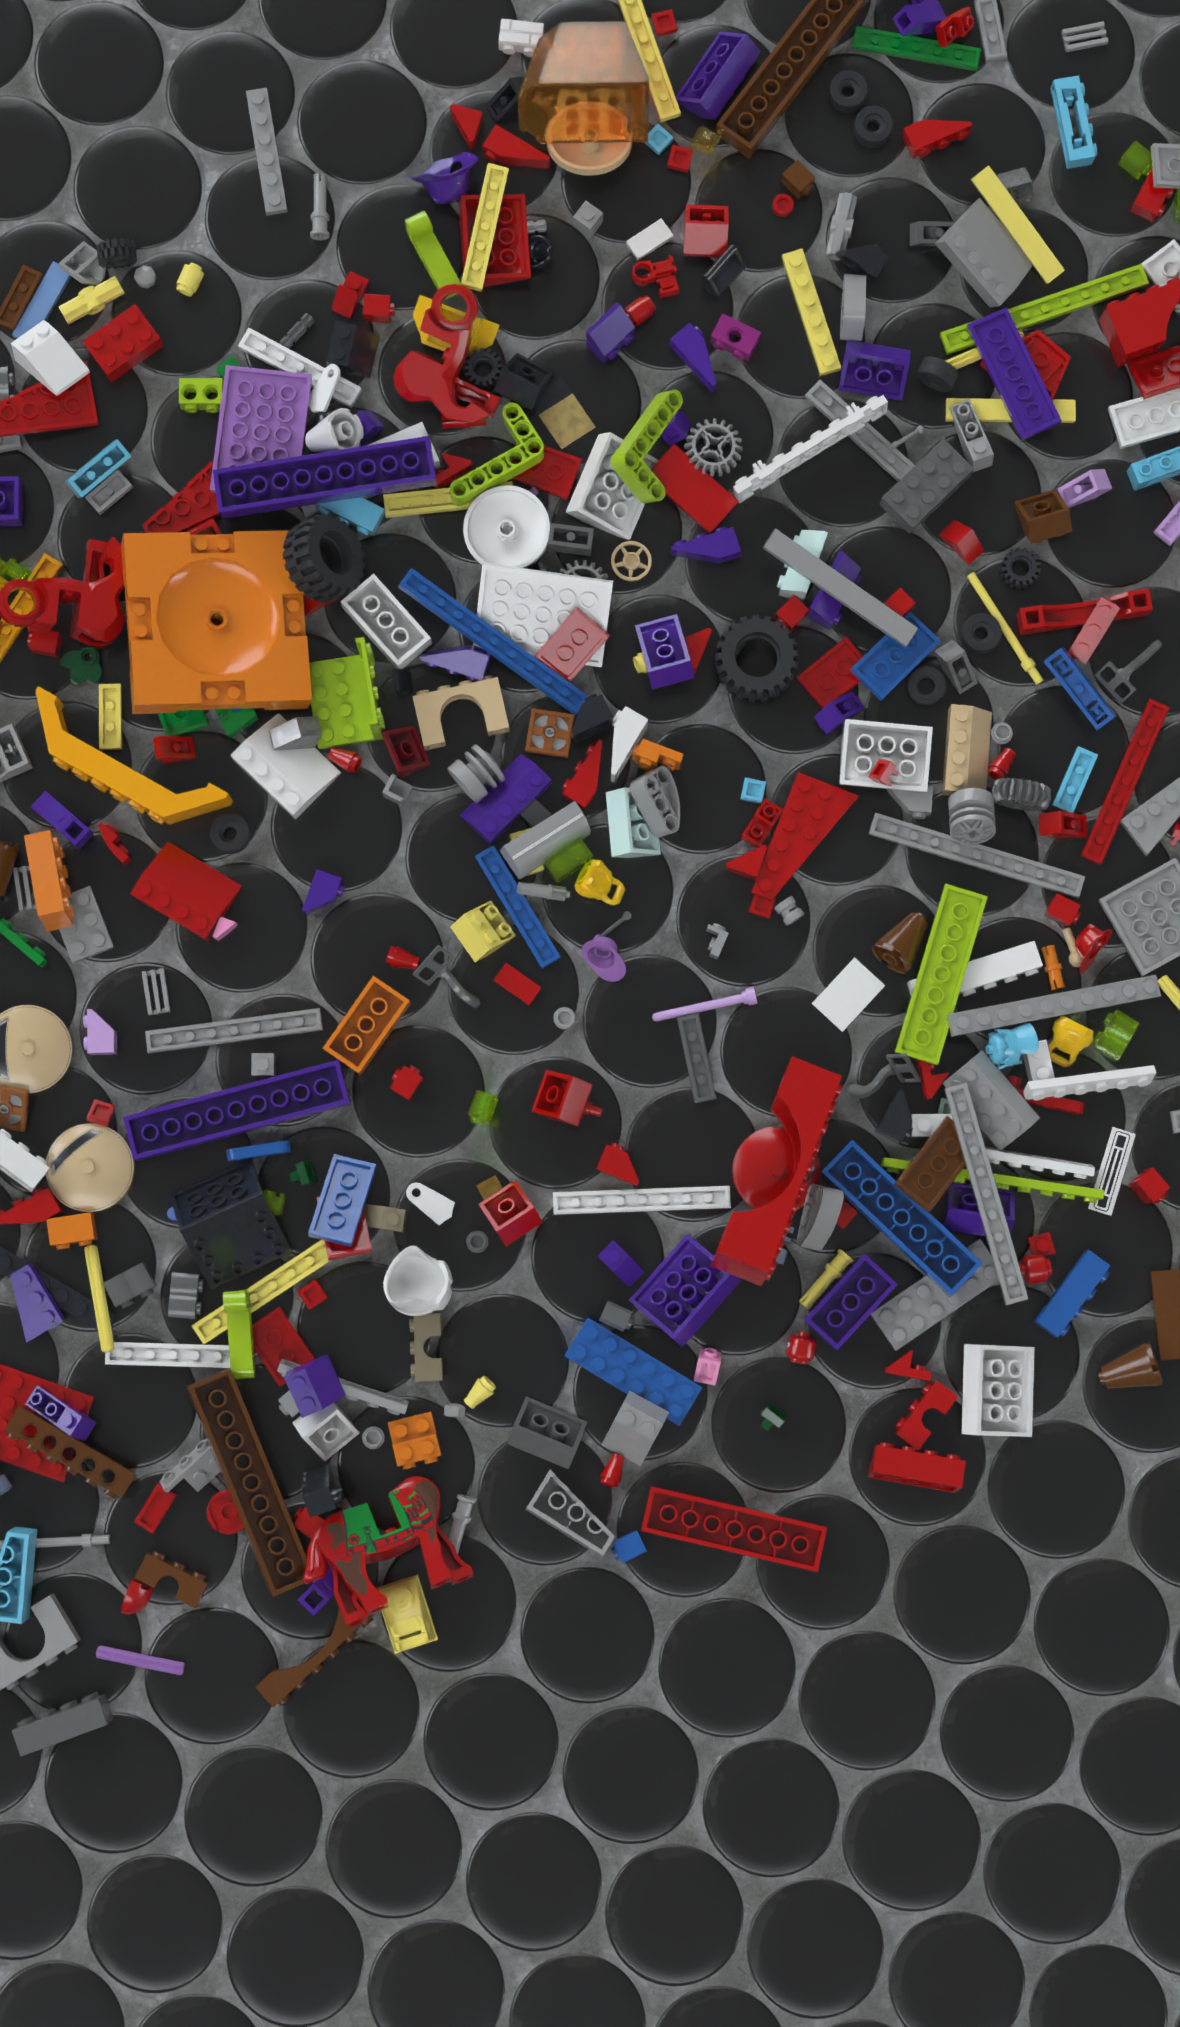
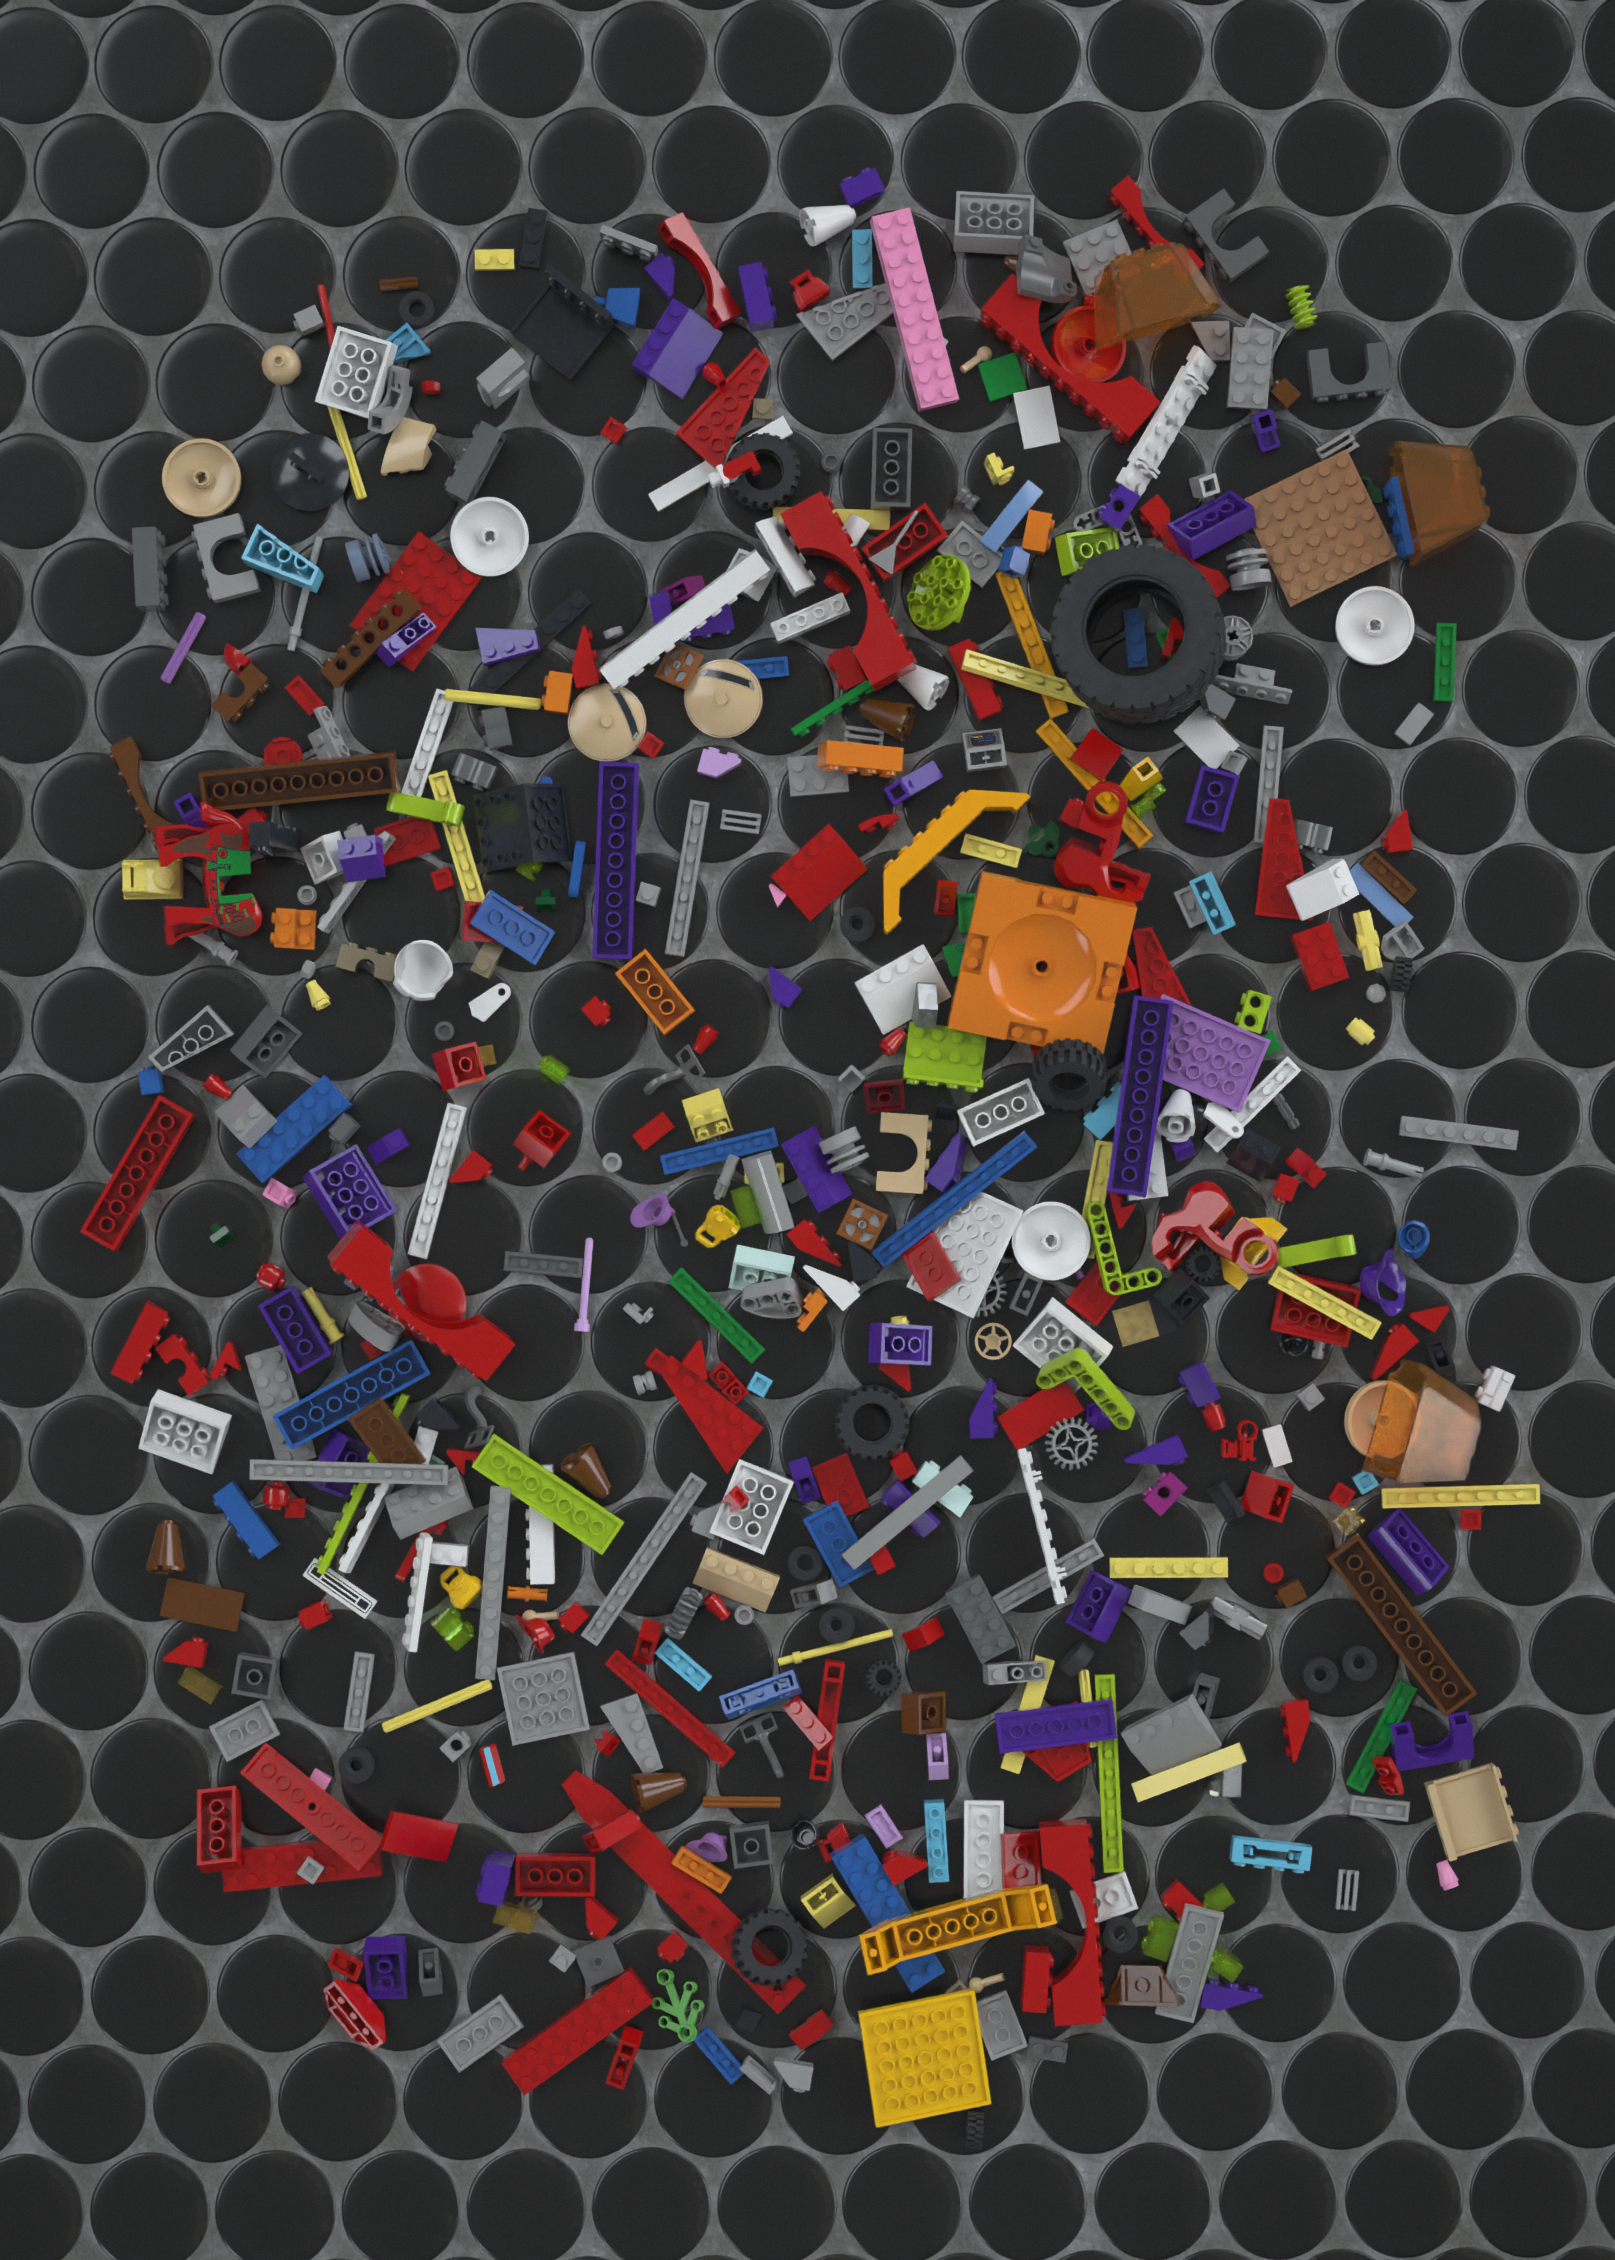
camera: 110 degrees right, 5 degrees up
(385, 162) = (1412, 1234): none -> blue hair
(693, 858) = (716, 1315): none -> green tile
(848, 994) = (559, 1411): white sticker -> none
(920, 429) = (1034, 1629): light grey hinge -> none
(971, 816) = (676, 1564): light grey wheel -> none
(1008, 1045) = (470, 1531): medium azure hat -> none

